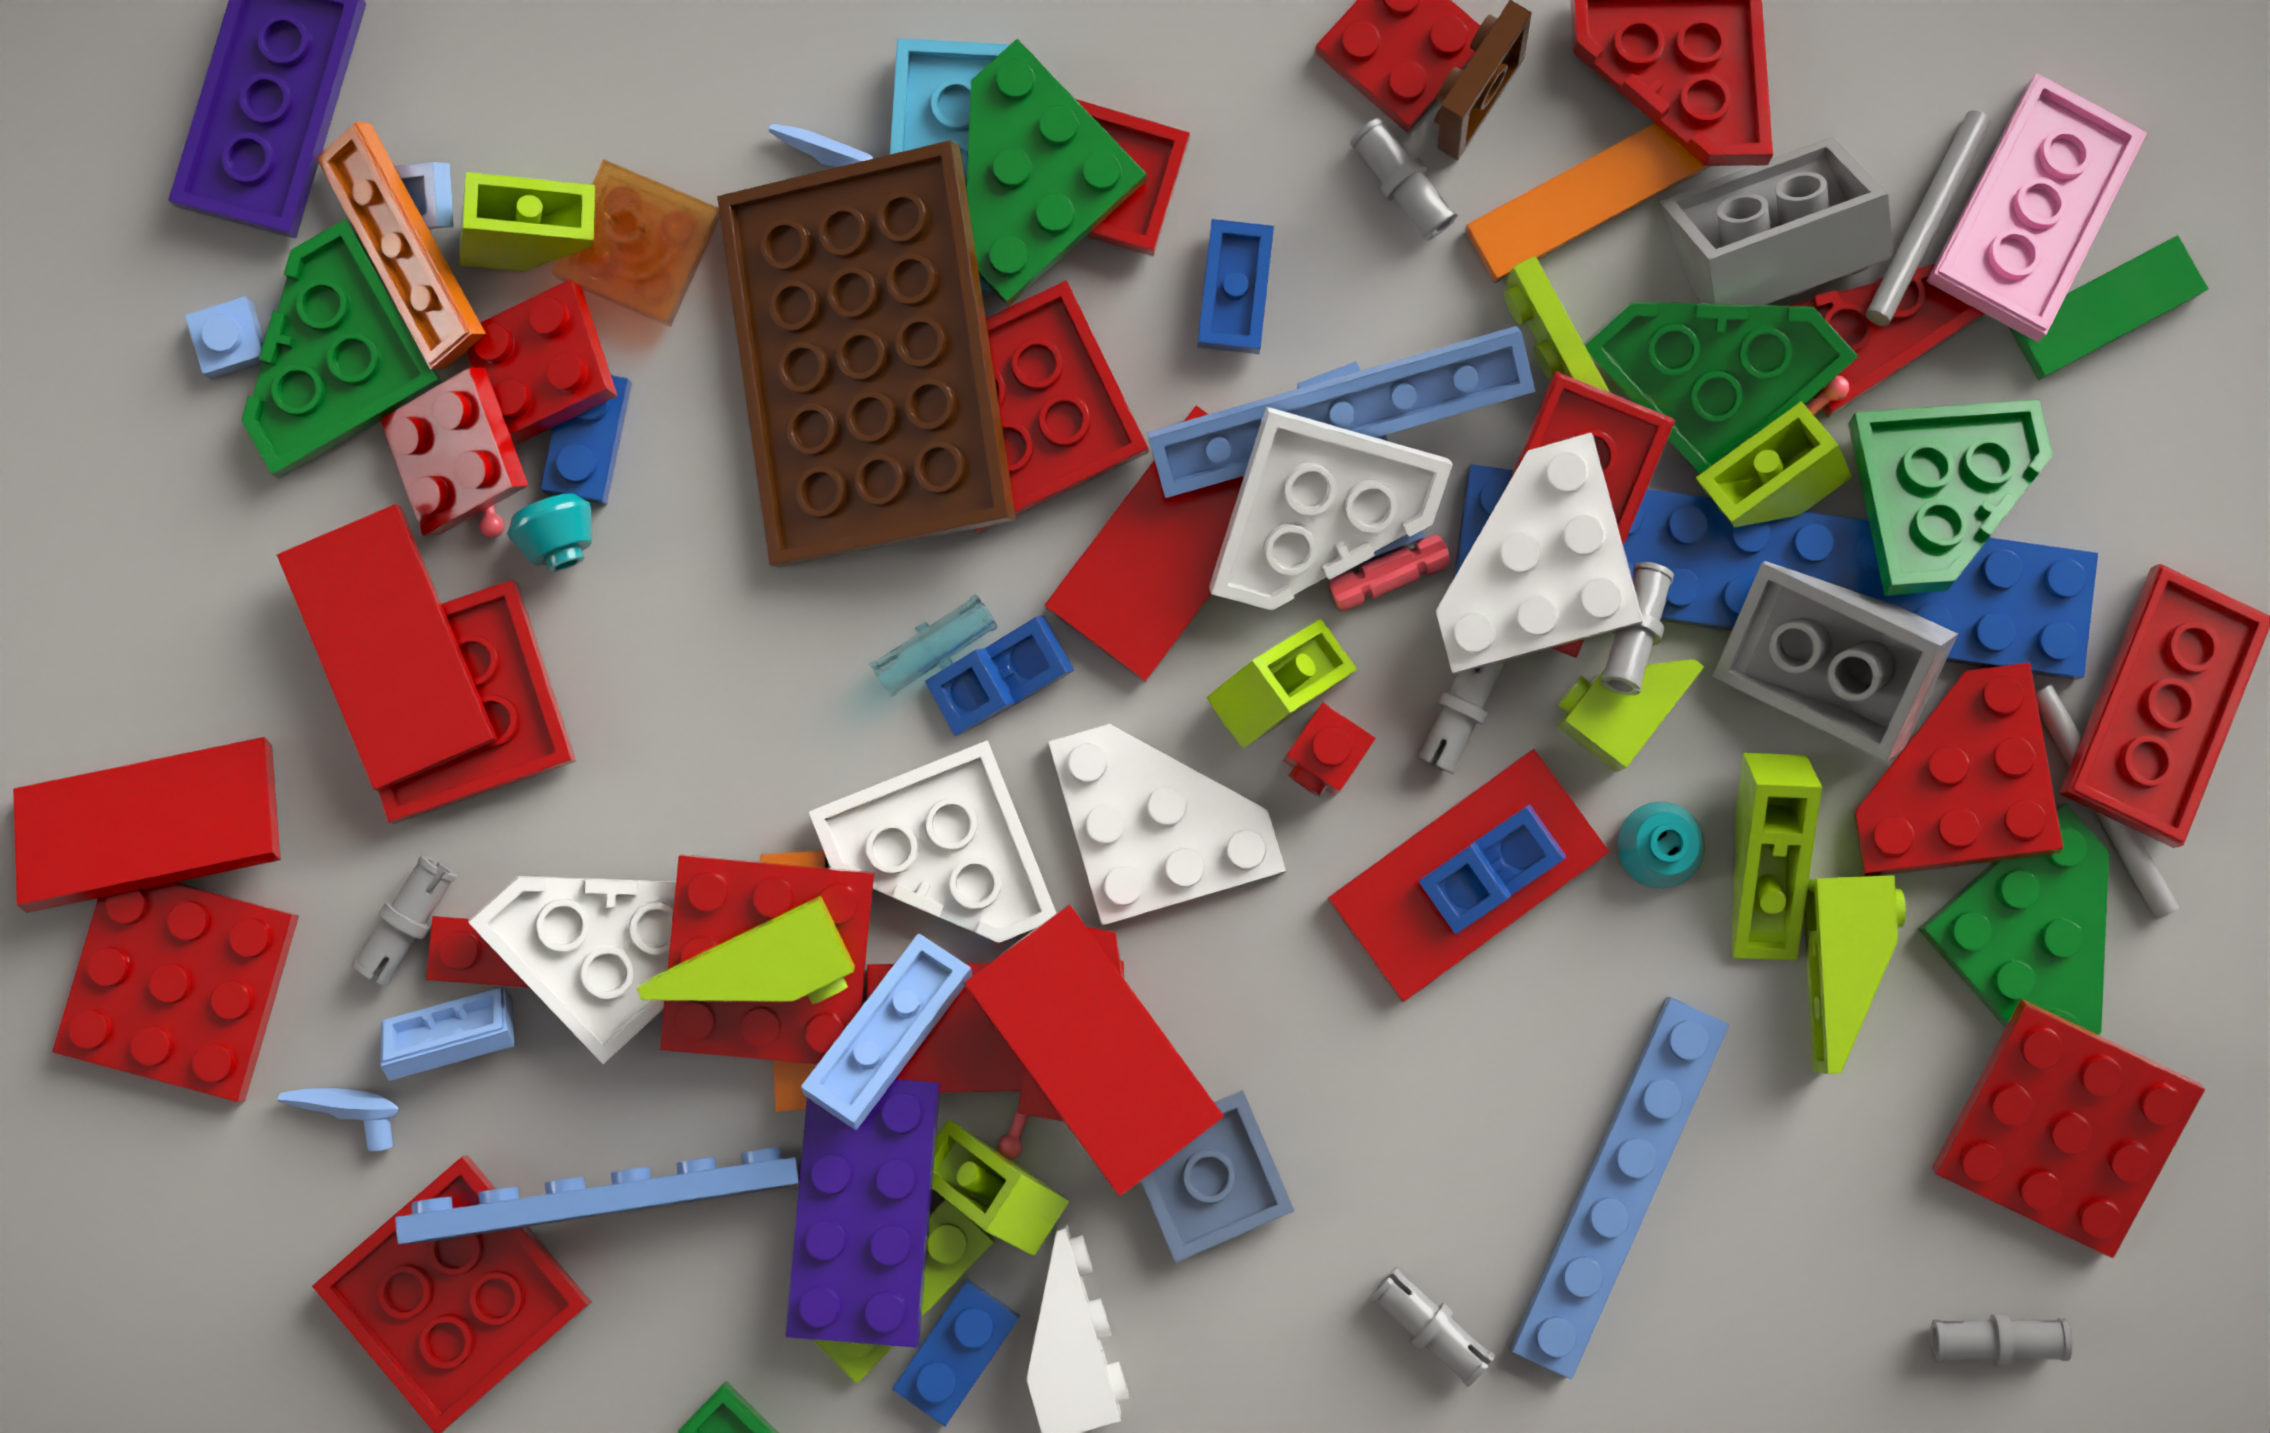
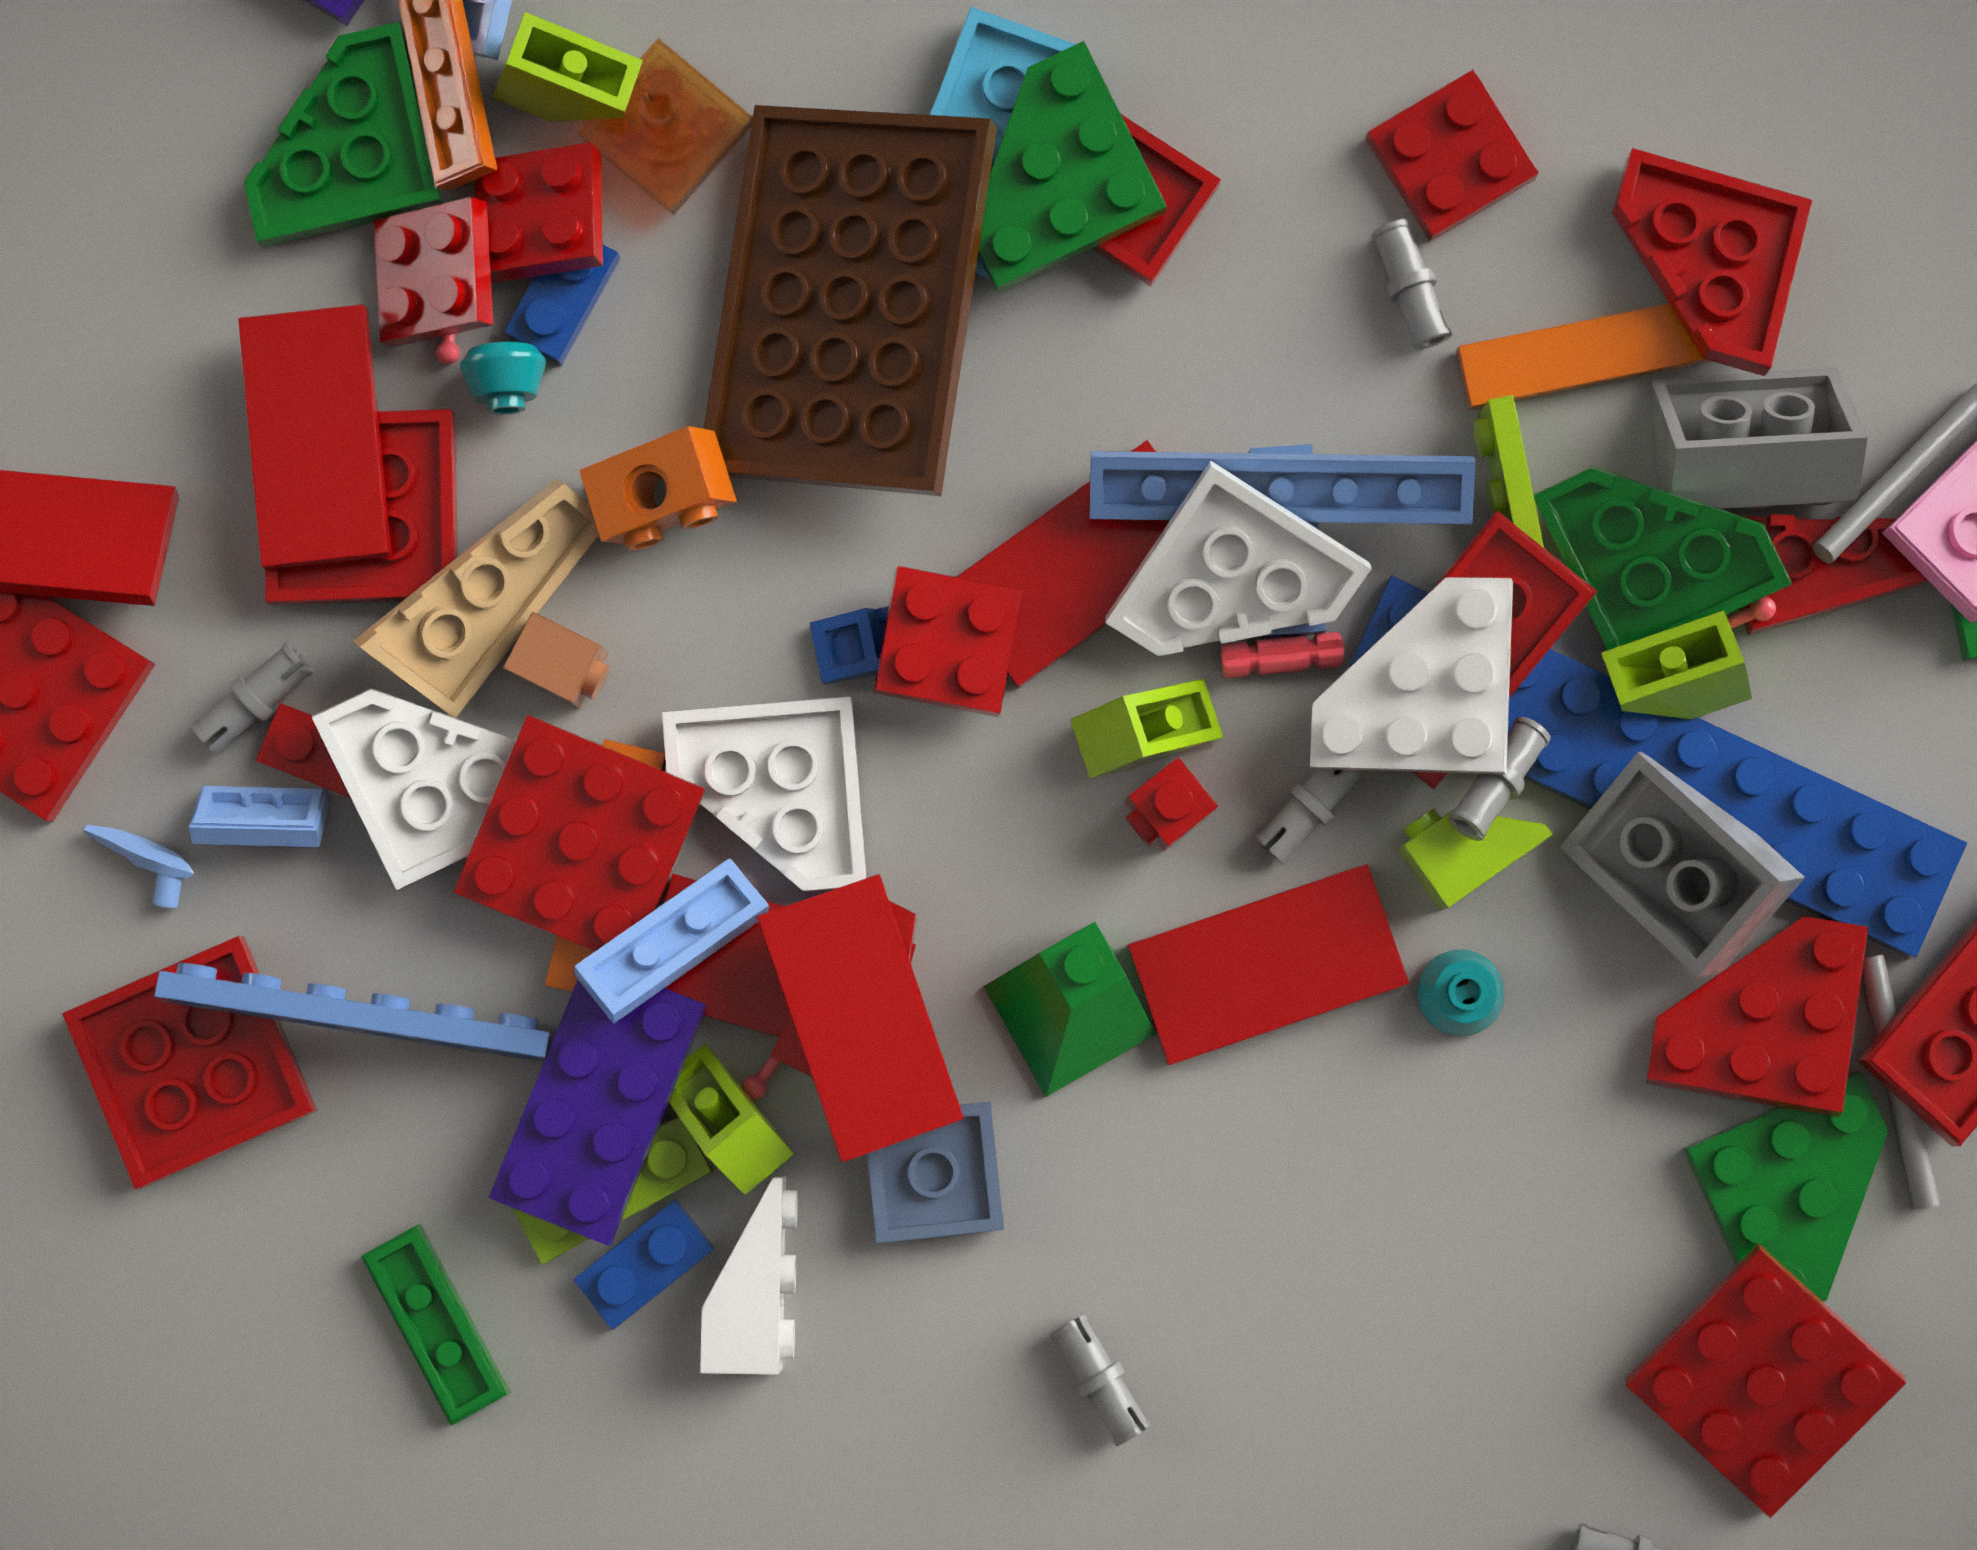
camera: 20 degrees right, 0 degrees up
(226, 337) = (253, 99): light blue plate -> none
(598, 762) = (475, 608): none -> tan wing
(692, 792) = (558, 661): none -> nougat brick
(704, 602) = (624, 486): none -> orange brick
(772, 962) = (584, 841): lime slope -> none
(821, 148) = (867, 89): light blue bar -> none
(933, 645) = (828, 592): clear light blue pin -> none
(1056, 399) = (1015, 394): red plate -> none
(1064, 658) = (947, 641): none -> red plate
(1155, 826) = (985, 827): white plate -> none
(1235, 286) = (1219, 338): blue plate -> none
(1291, 976) = (1070, 1009): none -> green slope
(1472, 93) = (1502, 222): reddish brown plate -> none
(1492, 869) = (1291, 964): blue slope -> none
(1619, 1187) = (1319, 1304): medium blue plate -> none
(1772, 854) = (1563, 1034): lime slope -> none
(1848, 946) = (1608, 1144): lime slope -> none
(1943, 483) = (1838, 730): plate -> none

